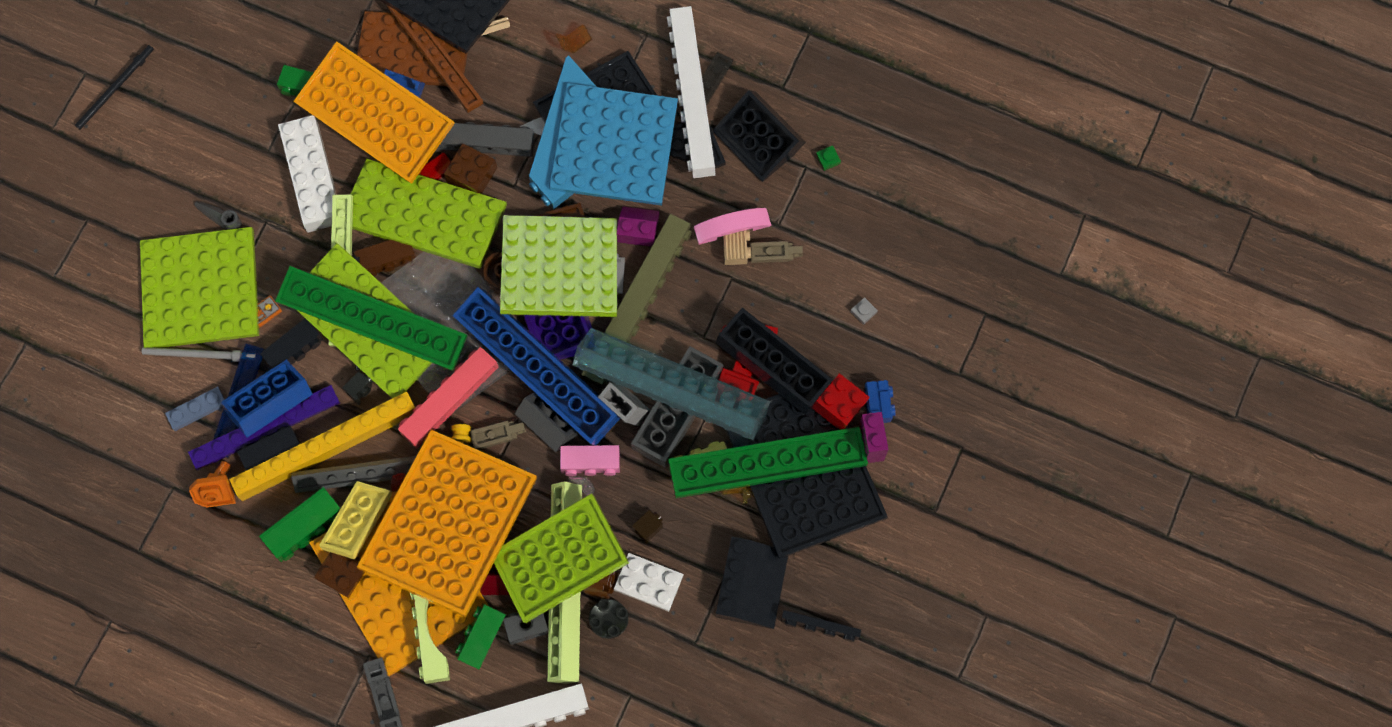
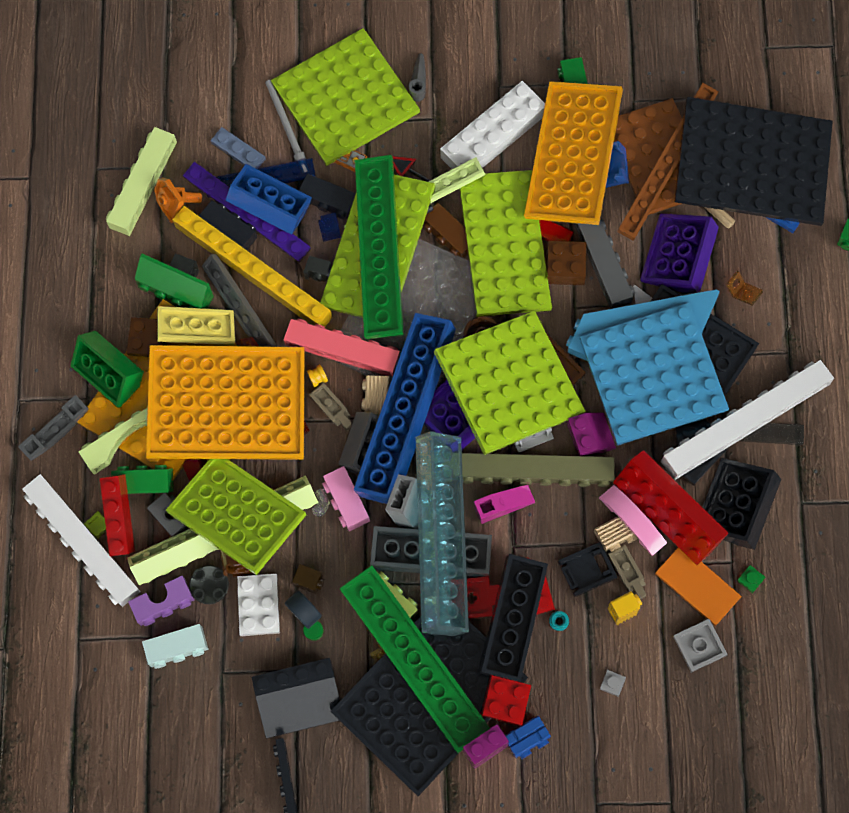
camera: 70 degrees right, 0 degrees up
(178, 511) = (141, 181): none -> yellowish green brick
(287, 505) = (185, 265): none -> pearl dark grey brick
(297, 263) = (403, 165): none -> piece
(322, 358) = (329, 227): none -> clear blue window
(352, 622) = (106, 368): none -> green slope
(498, 697) = (96, 524): none -> lime tile
(503, 671) = (117, 515): none -> red brick
(508, 387) = (375, 392): none -> tan brick
(511, 74) = (680, 252): none -> dark purple slope
(604, 686) = (177, 596): none -> medium lavender arch
(652, 673) = (175, 646): none -> light aqua brick
(663, 326) = (503, 503): none -> dark pink slope
(675, 541) = (303, 609): none -> black wheel
(696, 543) = (315, 632): none -> green tile
(738, 188) = (670, 507): none -> red brick
(756, 289) = (584, 572): none -> black container
(789, 324) = (559, 614): none -> teal plate
(806, 268) = (624, 607): none -> yellow brick
(813, 202) = (698, 586): none -> orange tile
(865, 224) = (700, 645): none -> light grey plate

